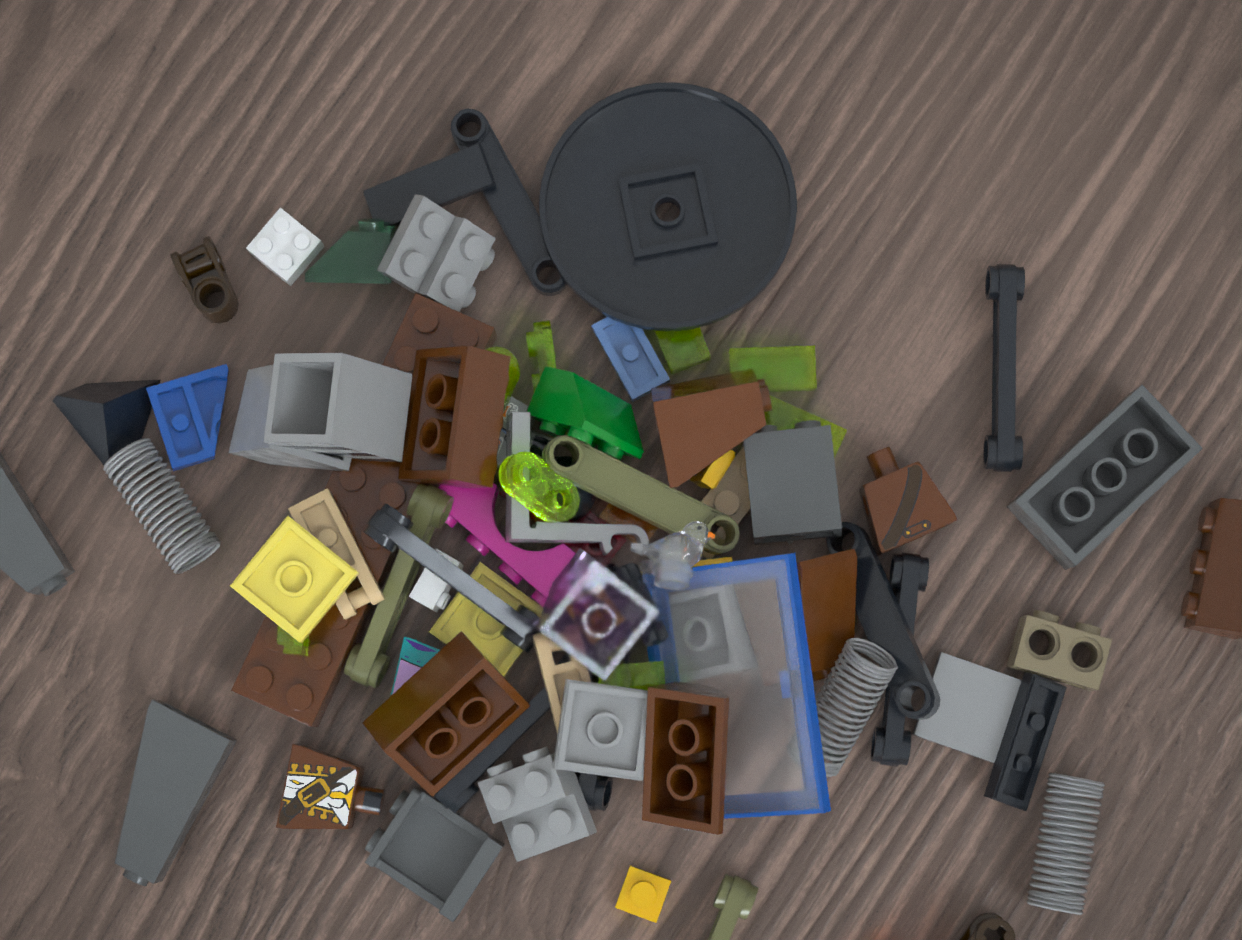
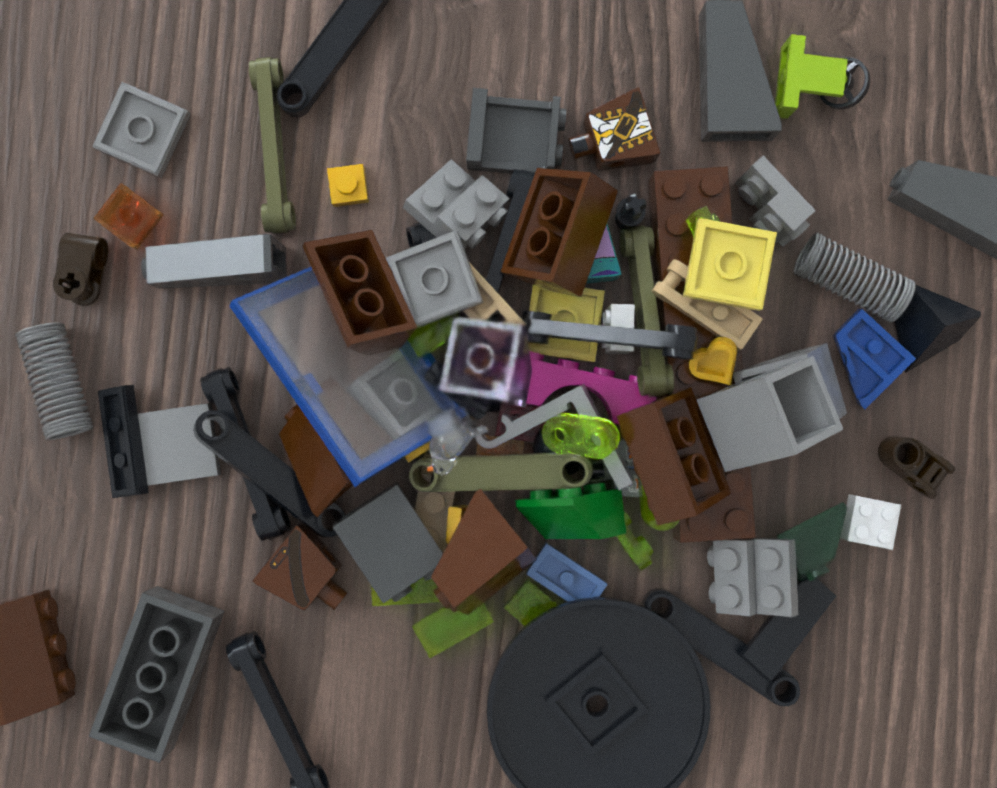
camera: 150 degrees right, 5 degrees up
(81, 739) = (814, 75): none -> lime piece
(203, 614) = (779, 203): none -> light grey plate
(358, 697) = (630, 211): none -> black axle
(360, 491) = (716, 361): none -> yellow tile
(830, 880) = (216, 262): none -> slope
(880, 676) = (256, 428): light grey piece -> none
(1057, 661) = (128, 517): dark tan brick -> none

